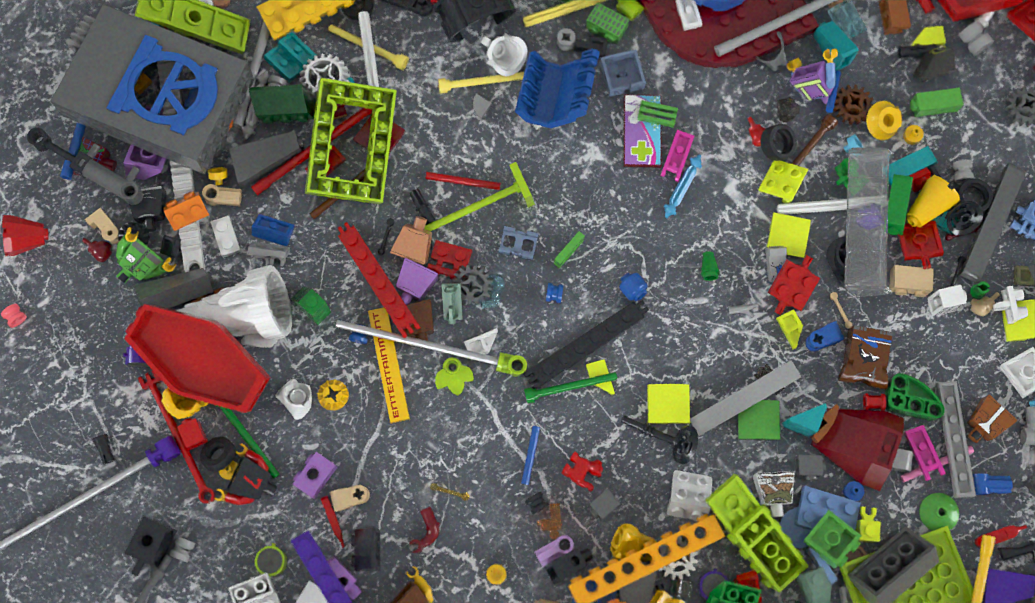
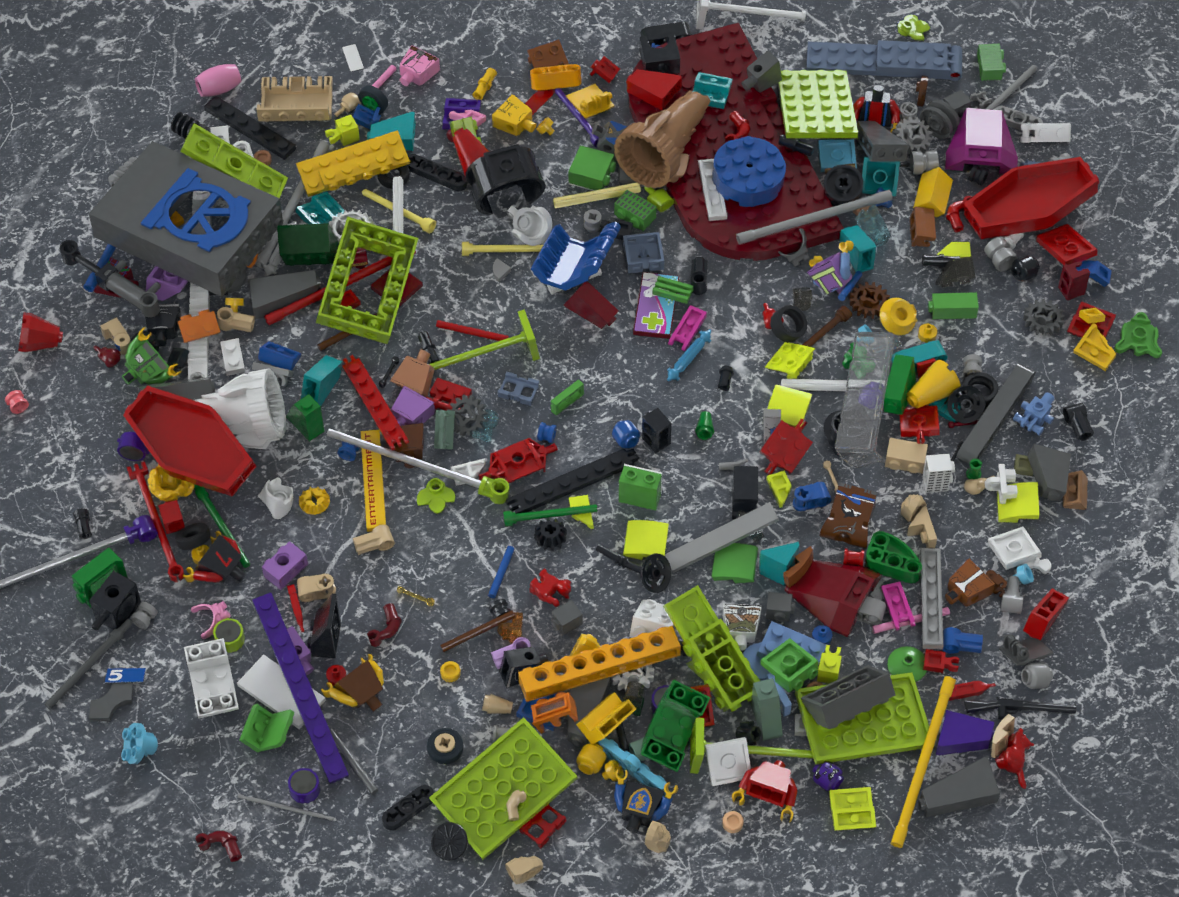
camera: 10 degrees right, 20 degrees down
(128, 516) = (94, 574): none -> green window
(257, 538) = (219, 614): none -> bright pink helmet
(319, 259) = (321, 379): none -> teal slope
(389, 594) = (335, 673): none -> red tile
(403, 434) = (379, 538): none -> tan piece
(518, 528) = (477, 631): none -> reddish brown bar
(521, 341) = (505, 467): none -> red plate
(579, 141) = (592, 306): none -> dark red slope
(581, 412) = (550, 534): none -> black gear
(657, 349) = (640, 487): none -> bright green piece
(664, 281) = (656, 430): none -> black brick
(681, 92) = (699, 275): none -> black piece
(722, 208) = (726, 373): none -> black pin
(761, 343) = (744, 489): none -> black piece
(925, 339) = (912, 506): none -> tan rock
(938, 356) = (923, 526): none -> tan slope
(969, 509) = (936, 661): none -> red plate
(1001, 51) = (1025, 267): none -> black head
(1017, 413) = (997, 579): none -> reddish brown piece

